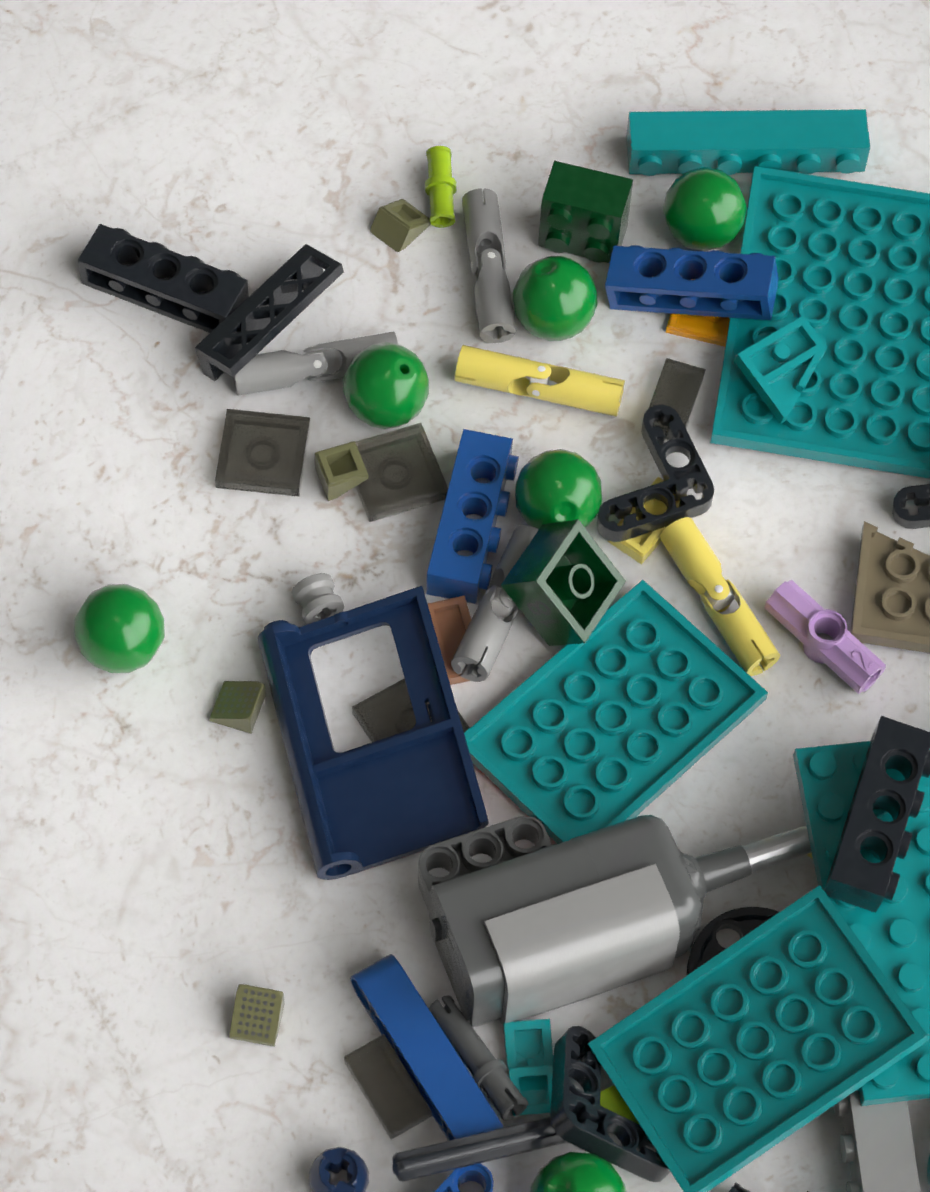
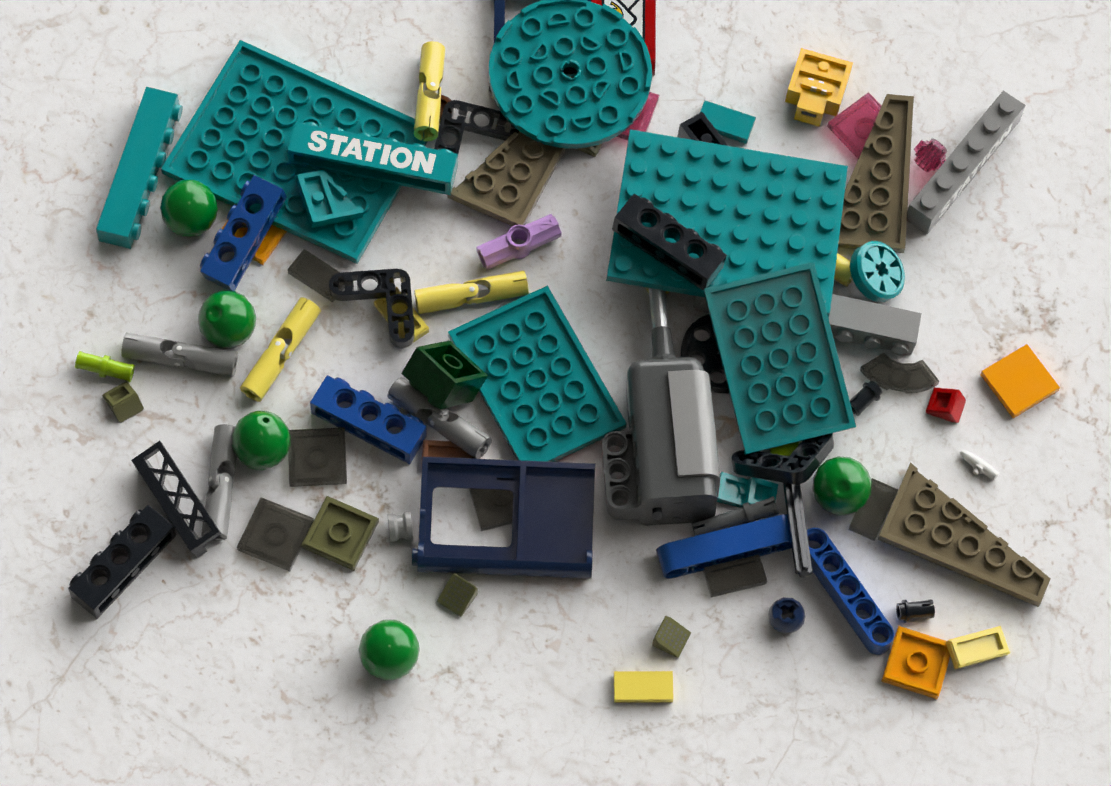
camera: 75 degrees left, 5 degrees up
(166, 997) = (643, 686): none -> light yellow tile
(289, 531) = (340, 533): none -> olive tile
(340, 469) = (308, 488): olive slope -> none
(558, 489) = (376, 359): green piece -> none
(584, 212) = (168, 280): dark green brick -> none
(873, 407) = (373, 157): none -> teal brick

